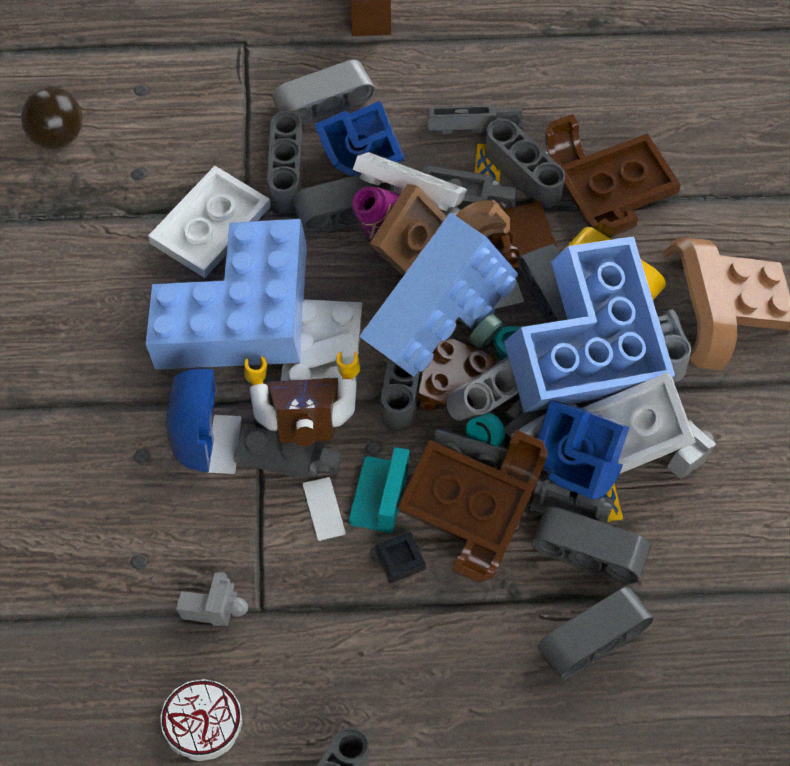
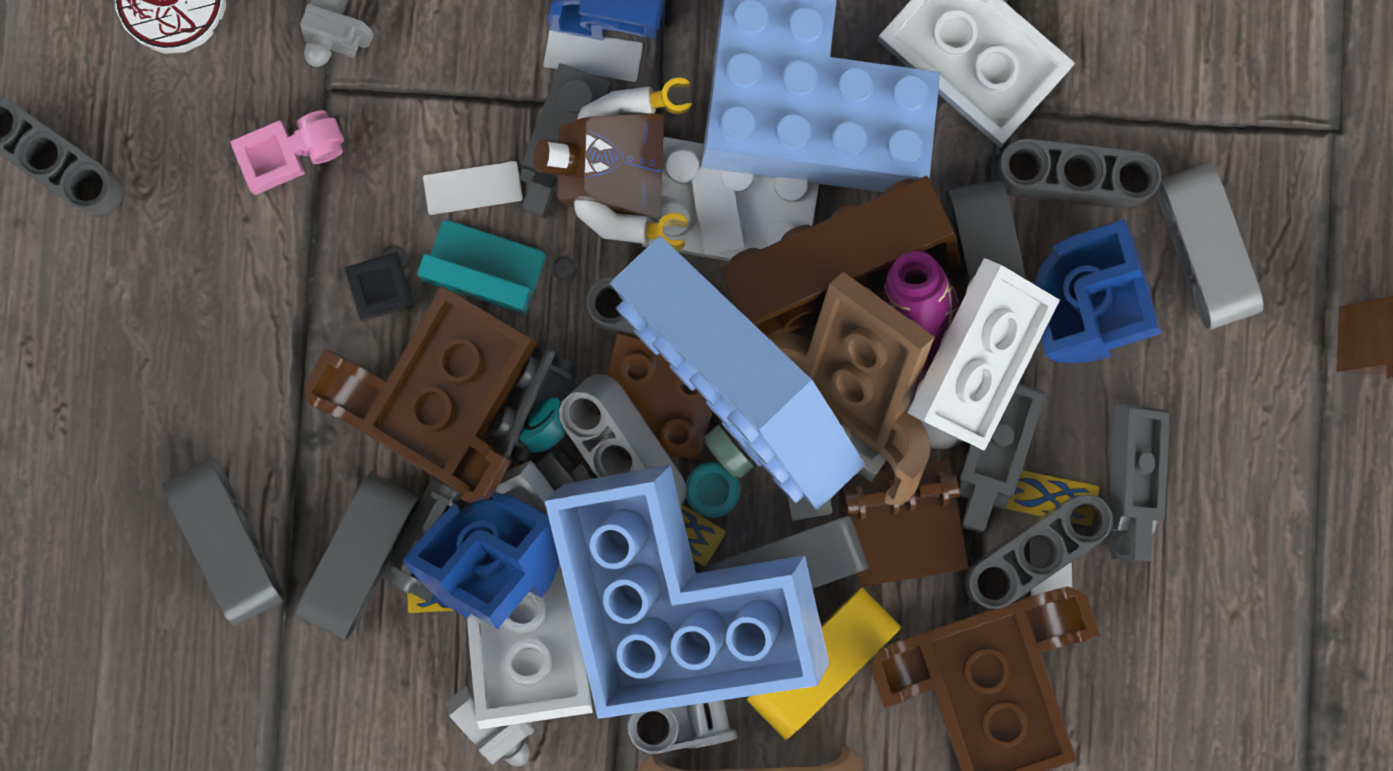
camera: 95 degrees right, 25 degrees up
(312, 631) = (271, 154): none -> bright pink plate
(350, 254) = (788, 280): none -> reddish brown wedge

